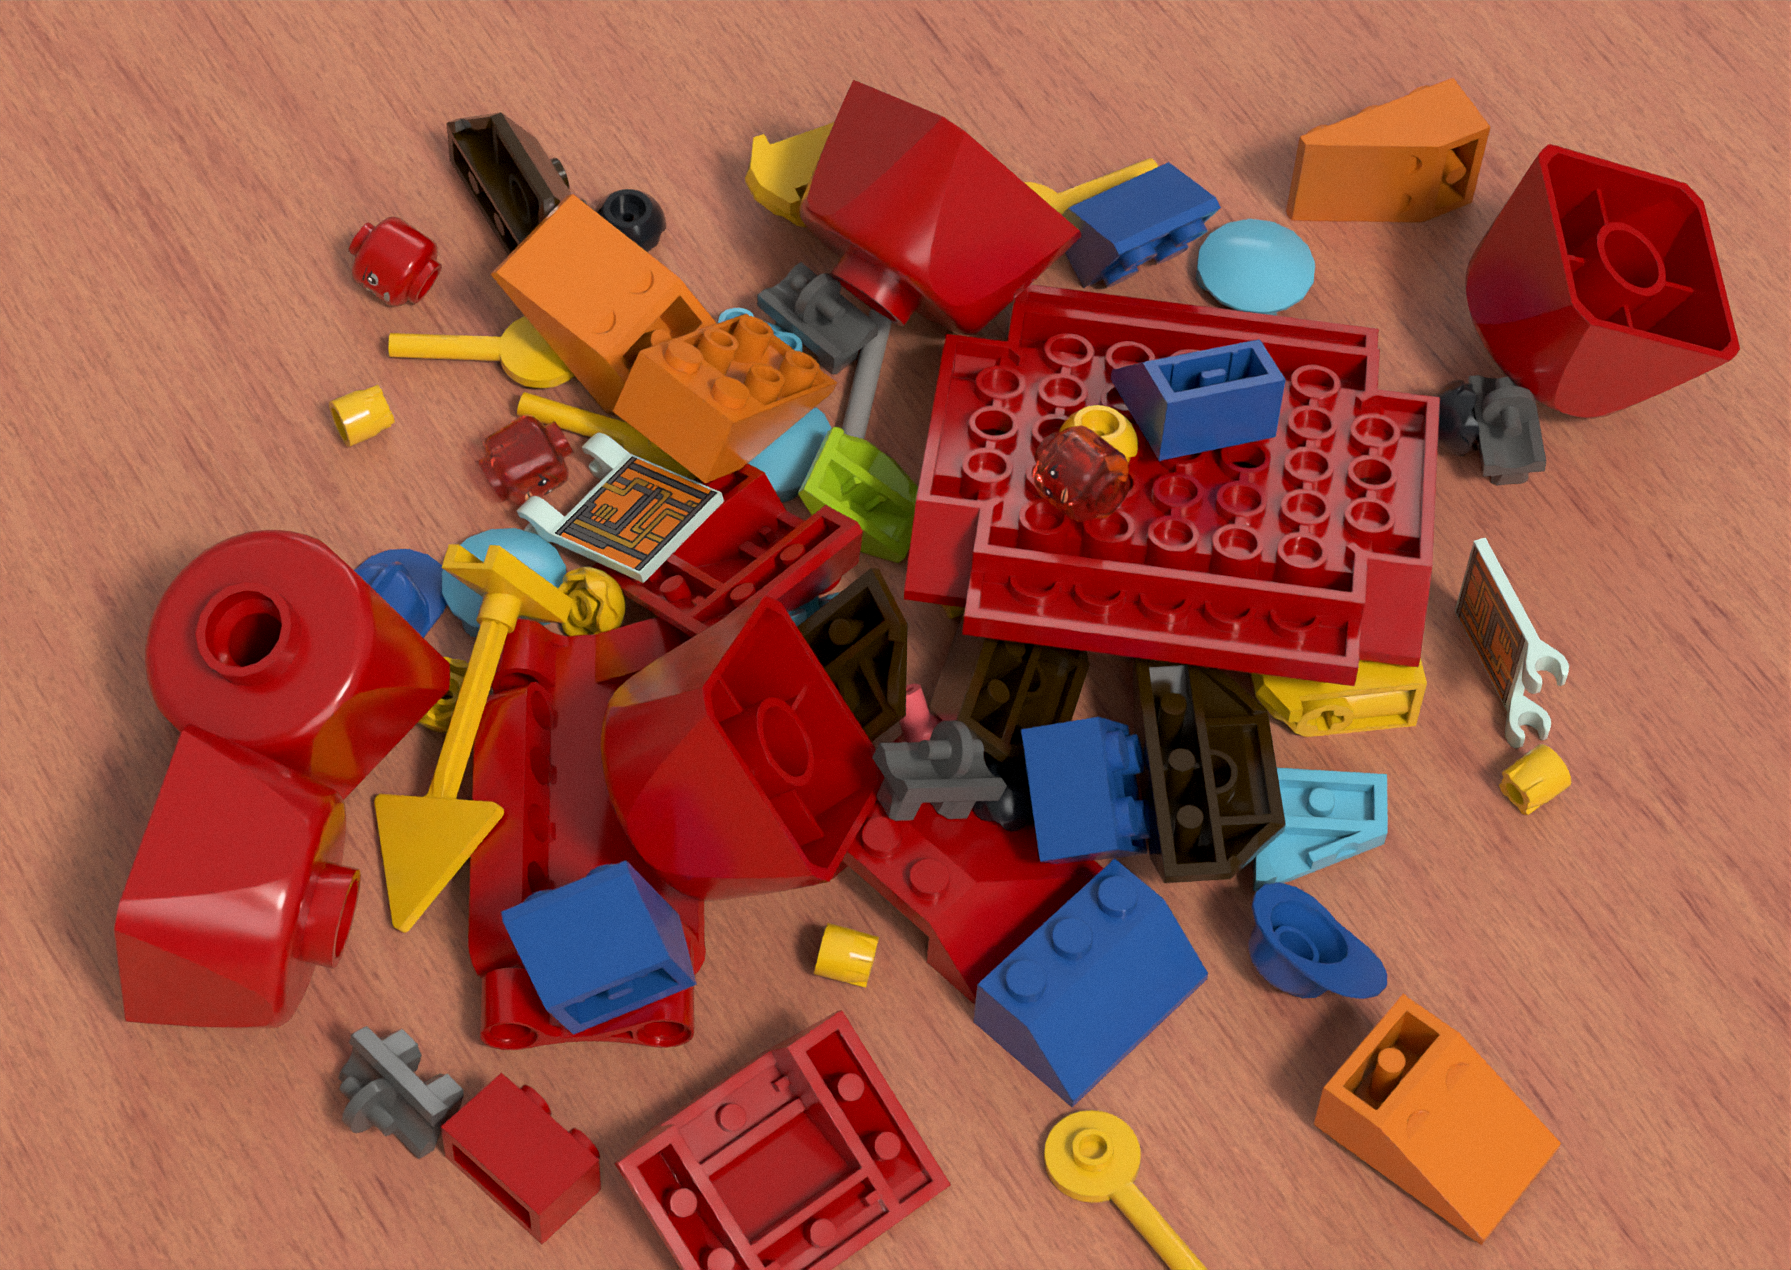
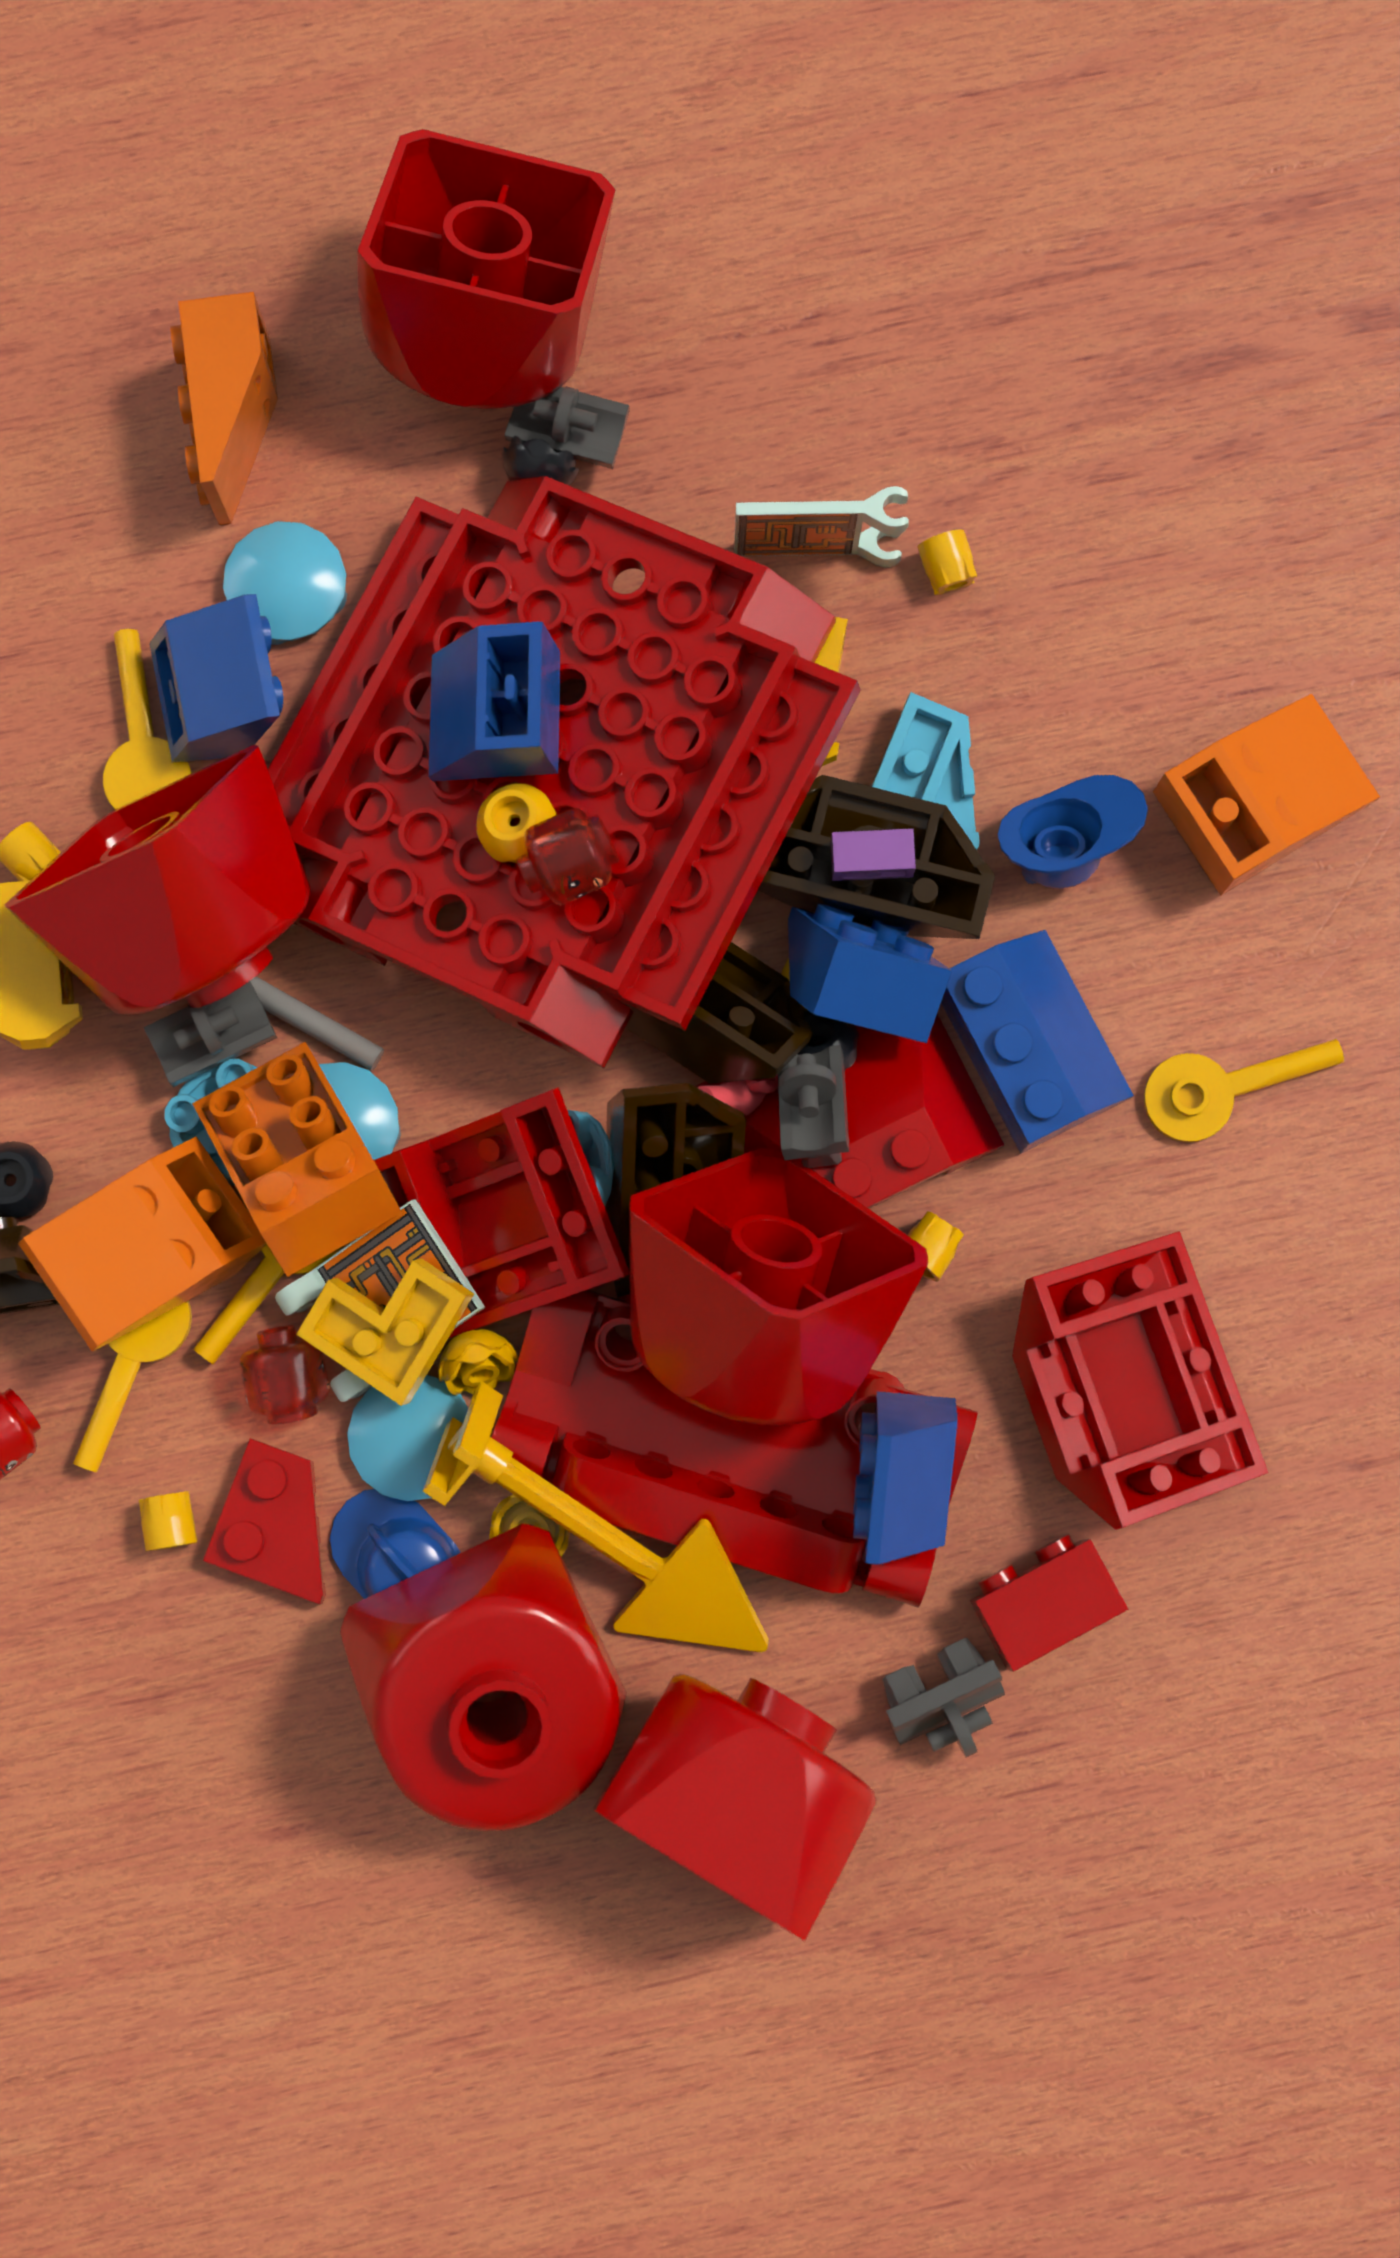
camera: 70 degrees left, 25 degrees up
(388, 496) = (271, 1523): none -> red wing
(588, 515) = (392, 1344): none -> yellow plate
(866, 487) = (434, 1056): lime slope -> none
(1202, 751) = (872, 854): none -> medium lavender piece

